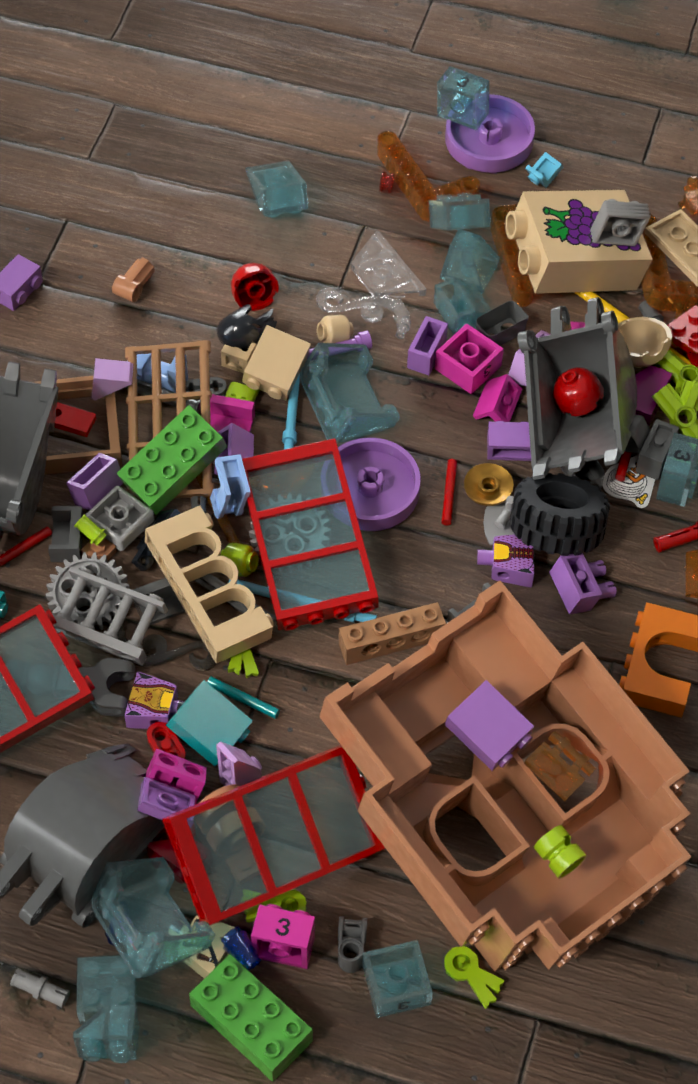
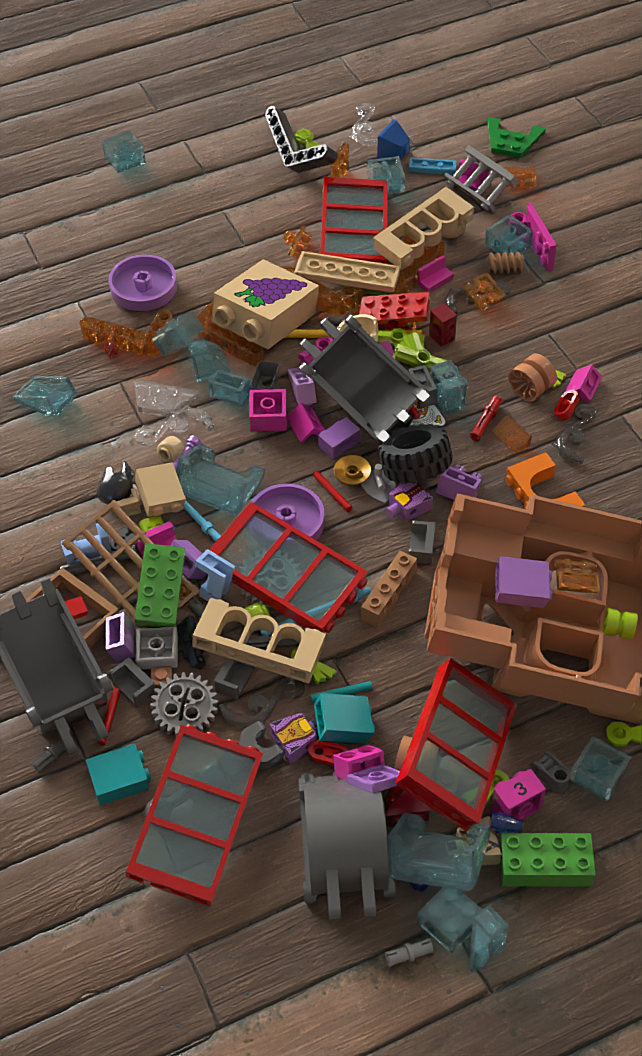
camera: 40 degrees left, 5 degrees down
(90, 530) = (147, 665): lime pin -> none
(108, 640) = (232, 719): light grey fence -> none
(110, 377) = (68, 567): lavender slope -> none
(131, 284) = (11, 508): nougat piece -> none
(236, 765) = (390, 732): lavender slope -> none
(254, 286) = (94, 457): red cylinder -> none
(425, 344) = (236, 419): medium lavender brick -> none
(463, 97) = (115, 268): clear light blue brick -> none
(544, 170) = (196, 282): medium azure bracket -> none
(577, 391) = (354, 382): red cylinder -> none
(620, 222) = (288, 273): light grey brick -> none

